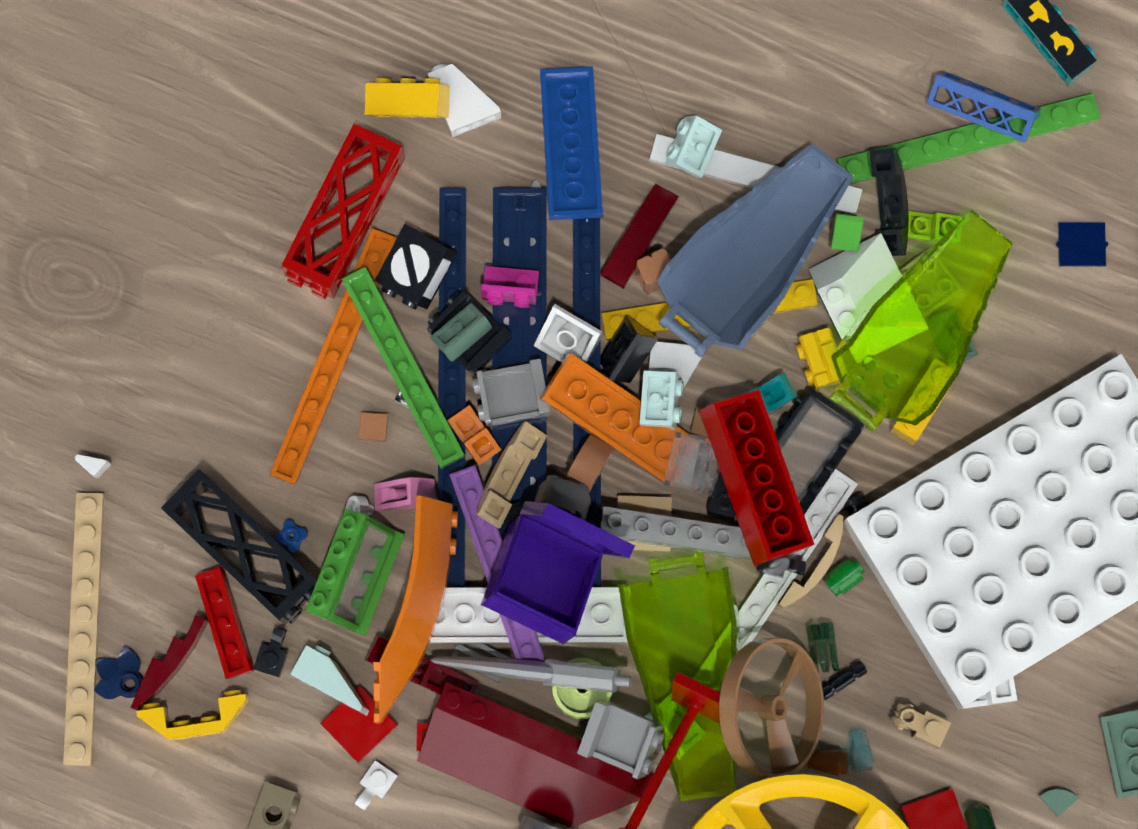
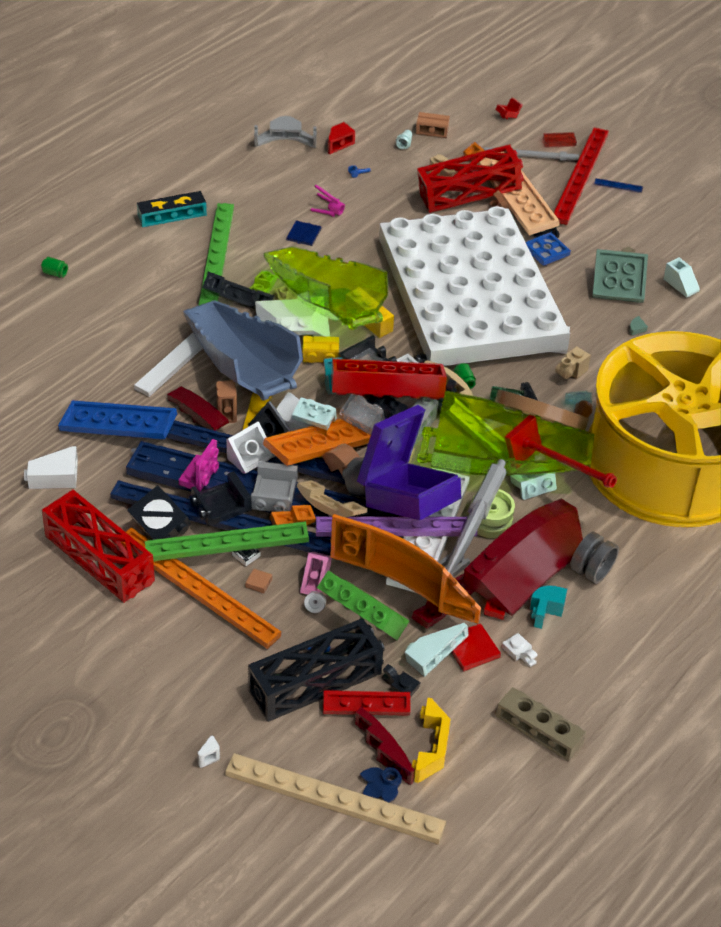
camera: 75 degrees left, 35 degrees down
(407, 98) = (38, 489): yellow brick -> none
(461, 332) = (218, 501): sand green slope -> none
(462, 800) = (547, 601): none -> teal brick
(621, 738) = (539, 480): light grey panel -> none
(693, 145) = (152, 366): light aqua bracket -> none
(846, 232) = (246, 304): bright green slope -> none
(987, 96) = (199, 237): fence -> none

